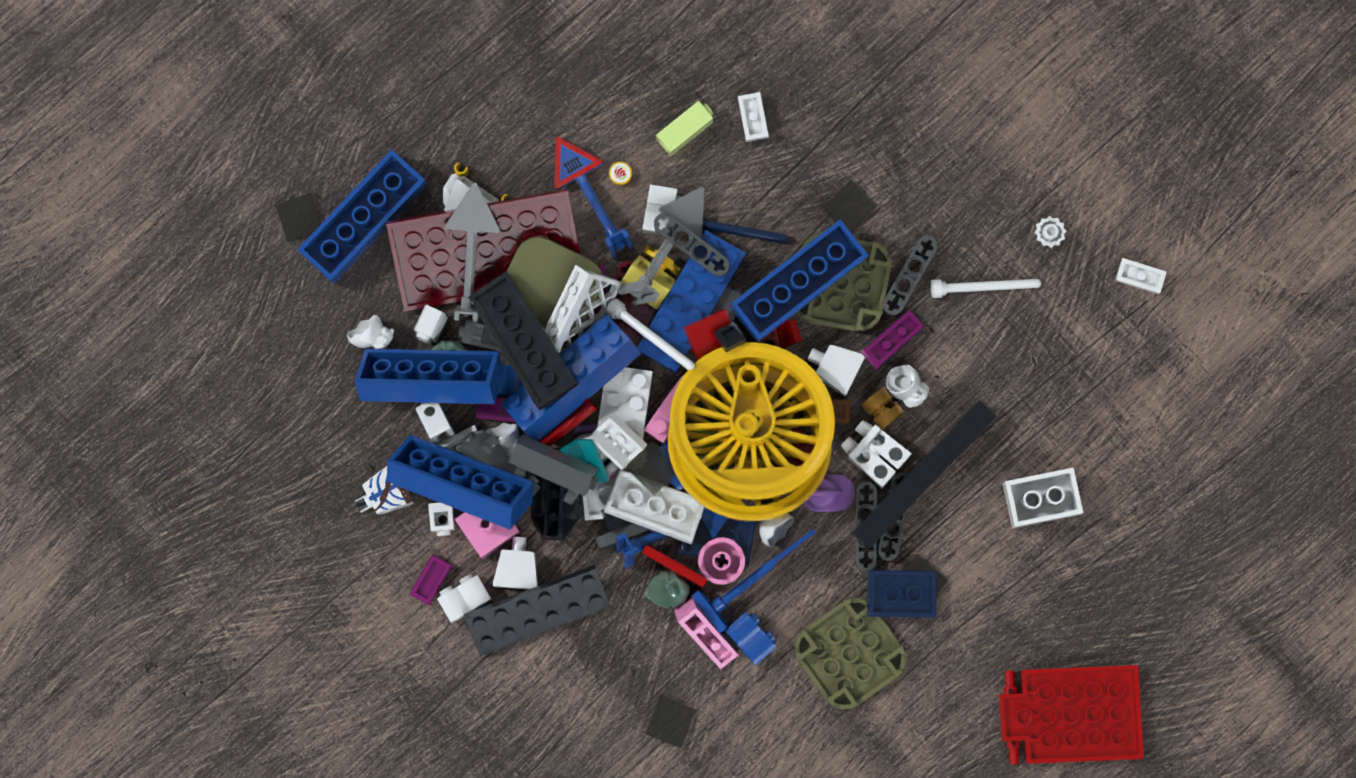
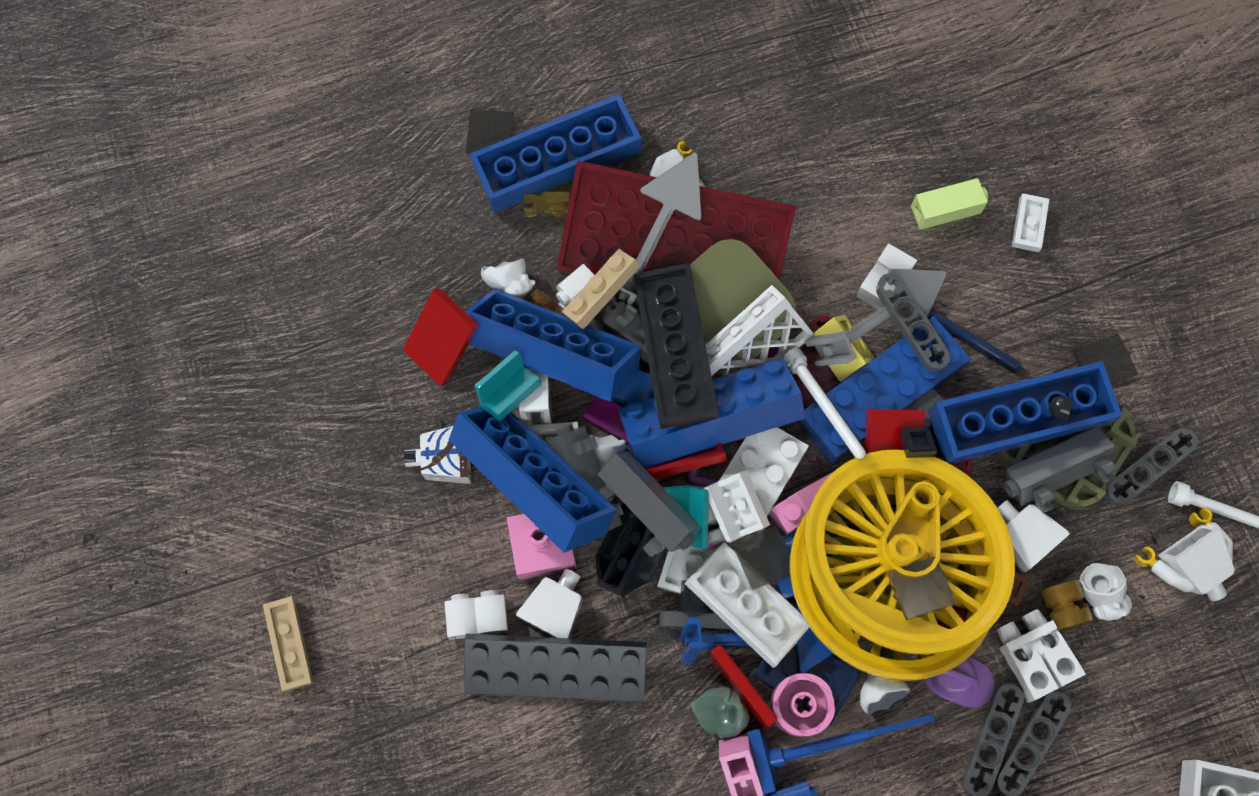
camera: 20 degrees right, 10 degrees down
(337, 676) = (288, 644): none -> tan plate
(342, 405) = (440, 337): none -> red tile
(380, 258) = (551, 202): none -> clear yellow plate
(407, 341) = (543, 300): none -> clear orange tile
(413, 425) = (506, 386): none -> teal panel
(431, 580) = (449, 578): magenta tile -> none
(437, 510) = (492, 501): white brick -> none
(449, 320) = (601, 288): none -> tan plate
(573, 165) = (809, 194): blue piece -> none
(620, 173) = (857, 224): tile -> none
(668, 263) = (871, 337): yellow plate -> none
(772, 449) = (921, 593): none -> clear smoke piece
(788, 334) = (985, 471): red plate -> none
(820, 270) = (1060, 407): none -> black hinge
(840, 309) = (1060, 466): none -> dark grey brick
(892, 339) = (1107, 529): magenta tile -> none
(923, 474) = (1090, 707): black tile -> none
(964, 335) = (1197, 560): none -> white torso

